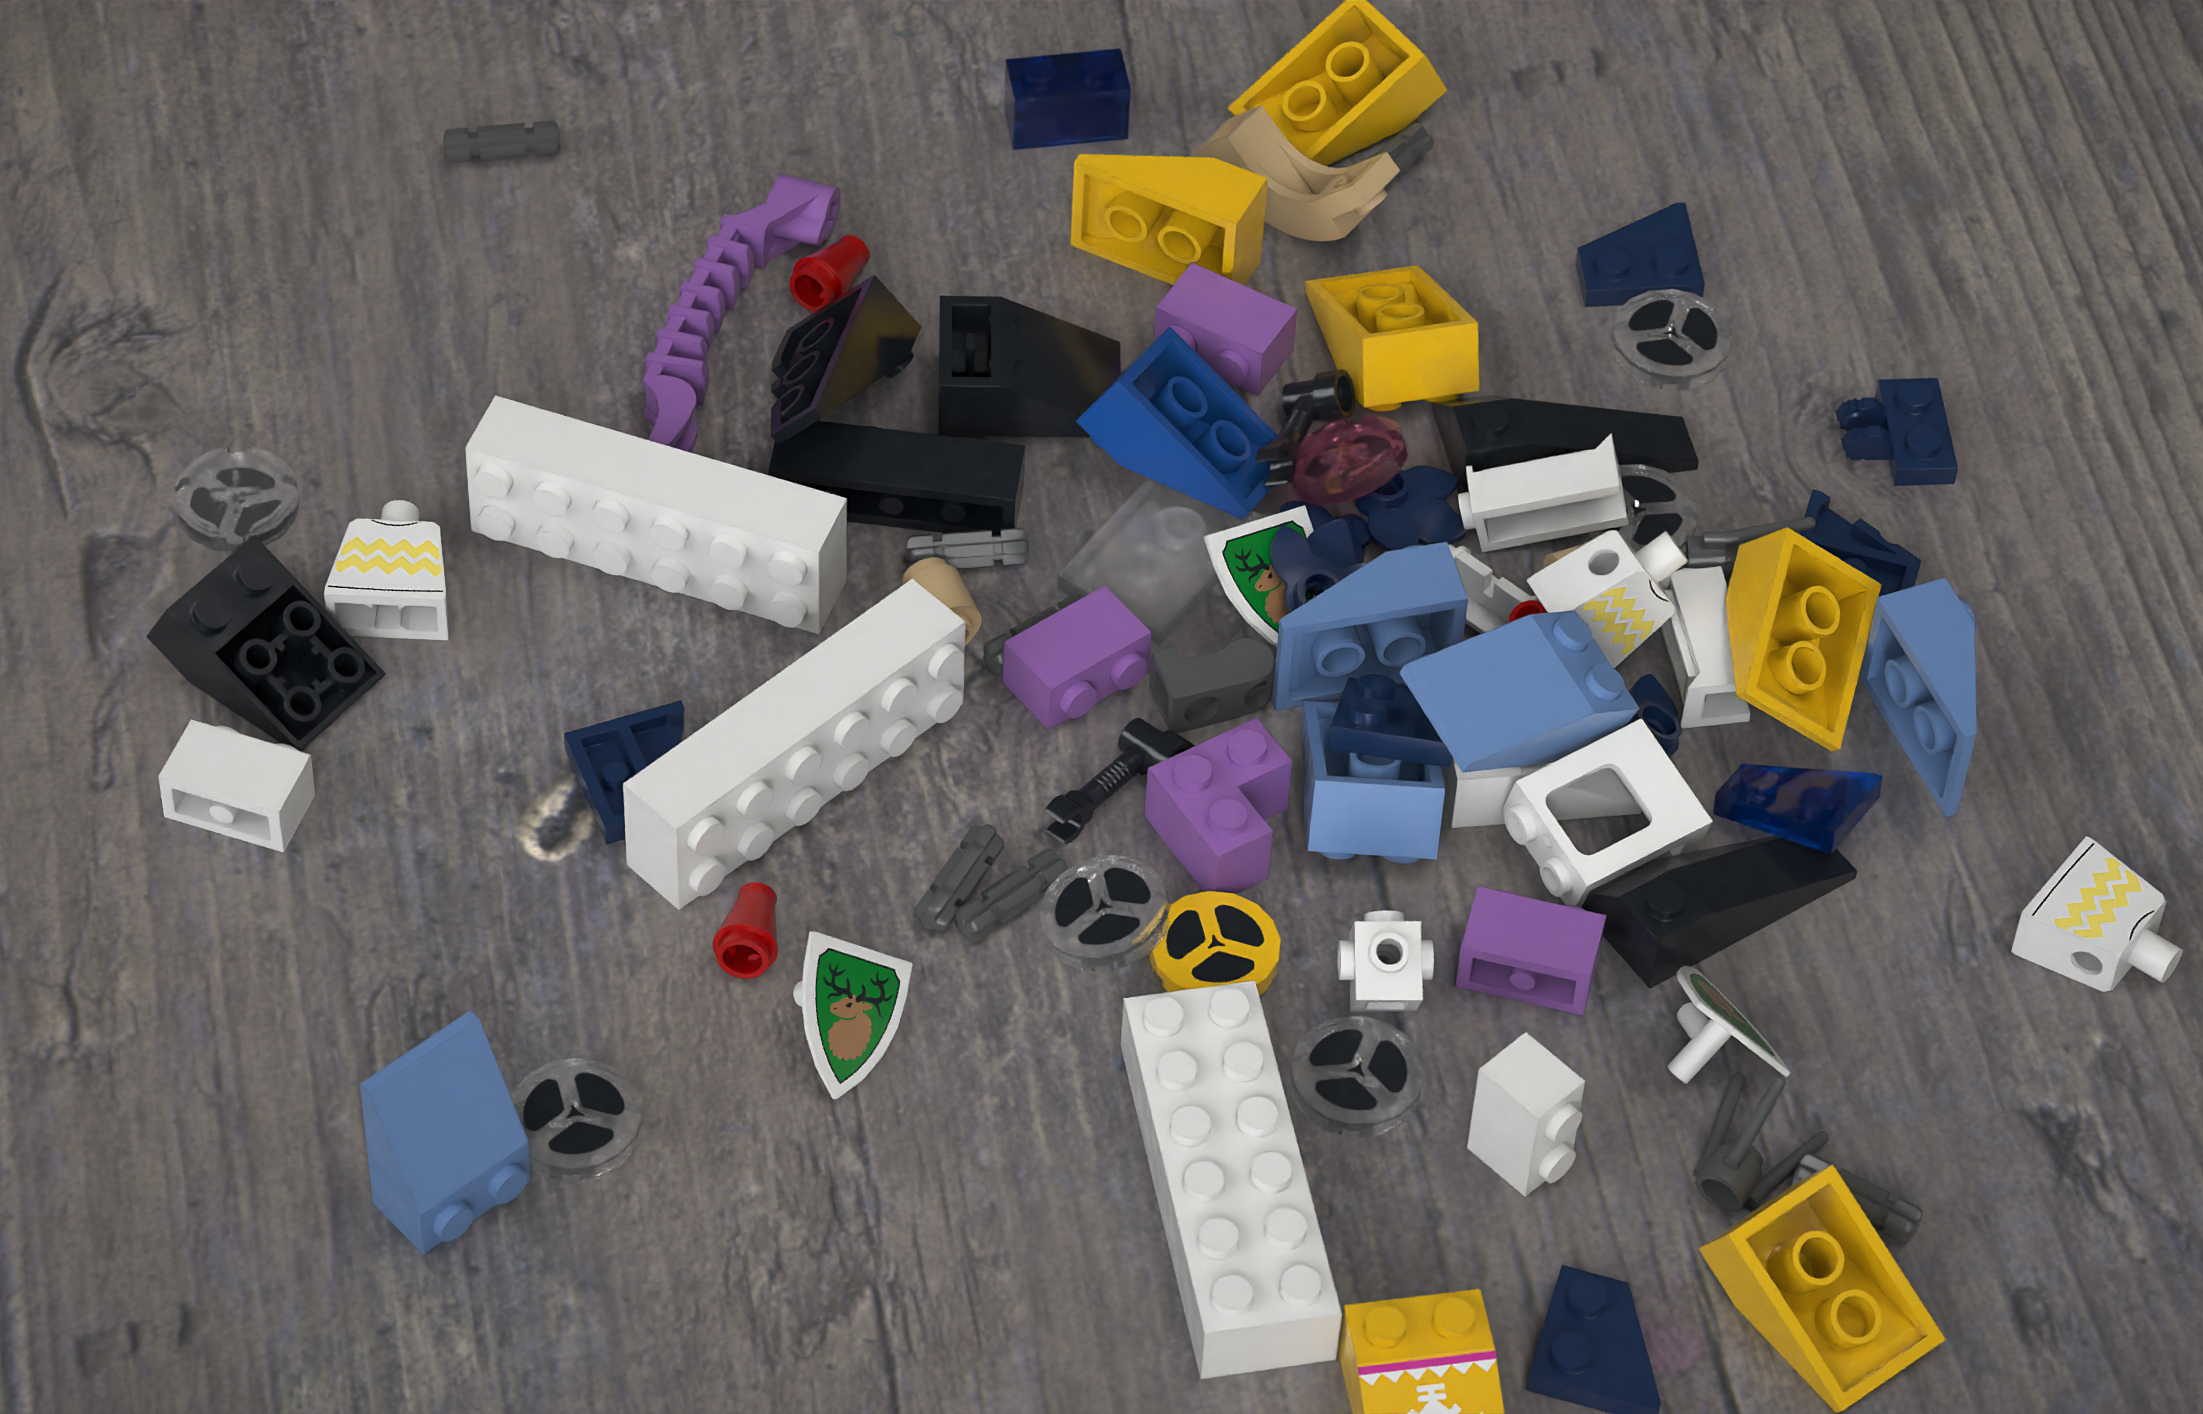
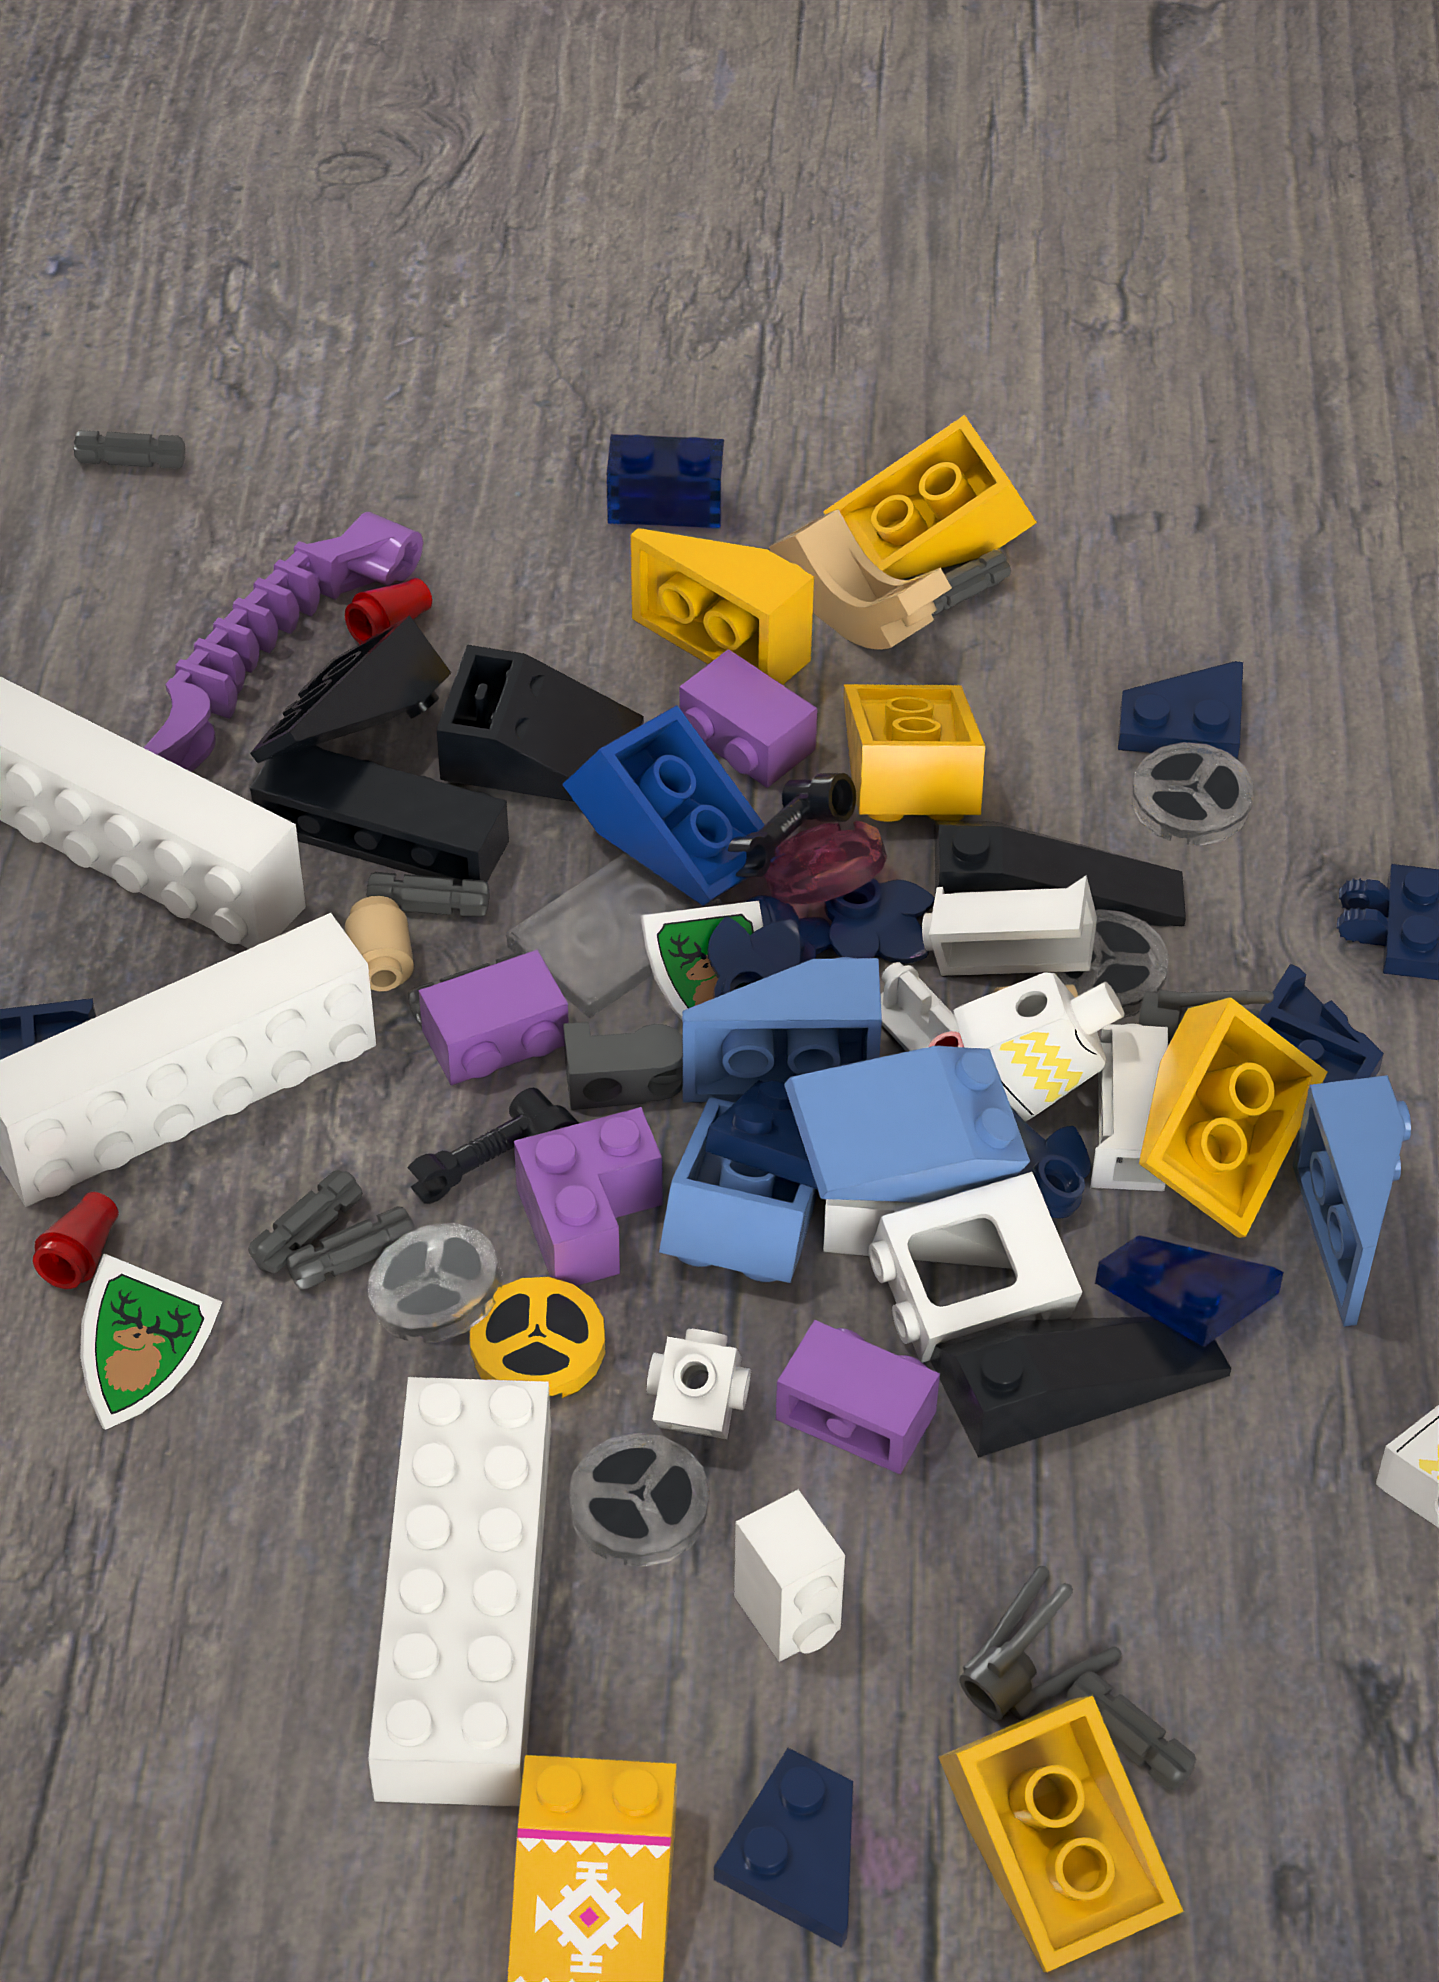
camera: 15 degrees right, 0 degrees up
(1710, 1034) = (1028, 1503): white shield -> none

